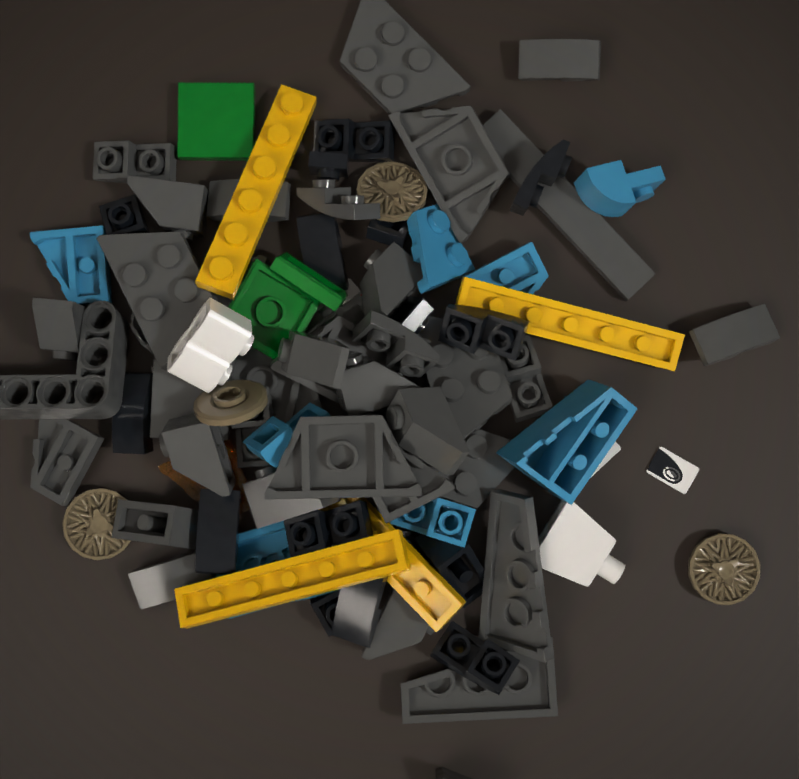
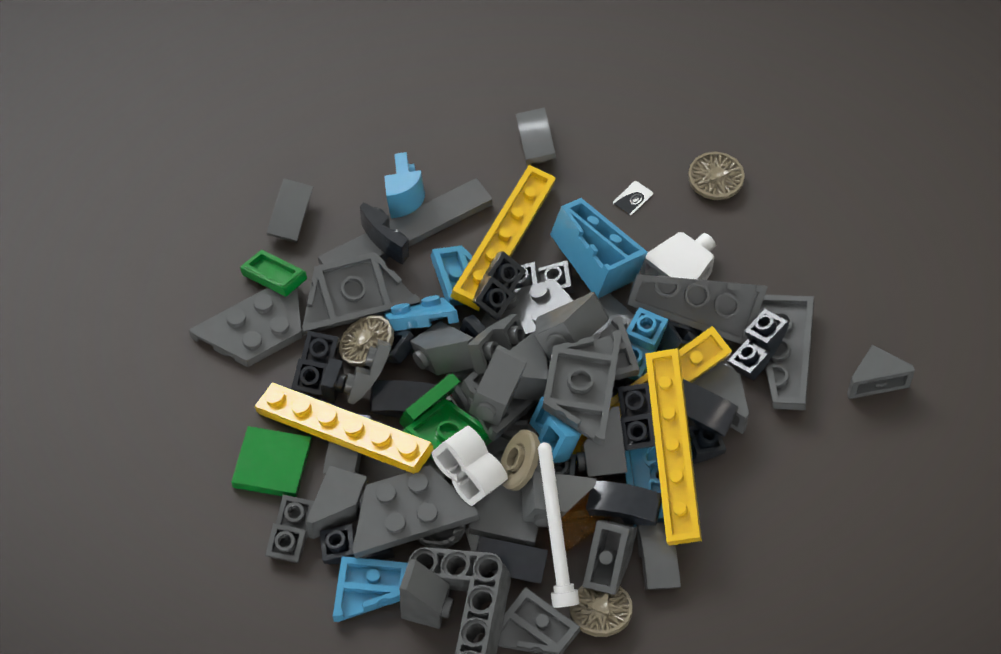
camera: 75 degrees left, 30 degrees down
(97, 481) = (564, 592): none -> white piece
(464, 62) = (273, 273): none -> green tile

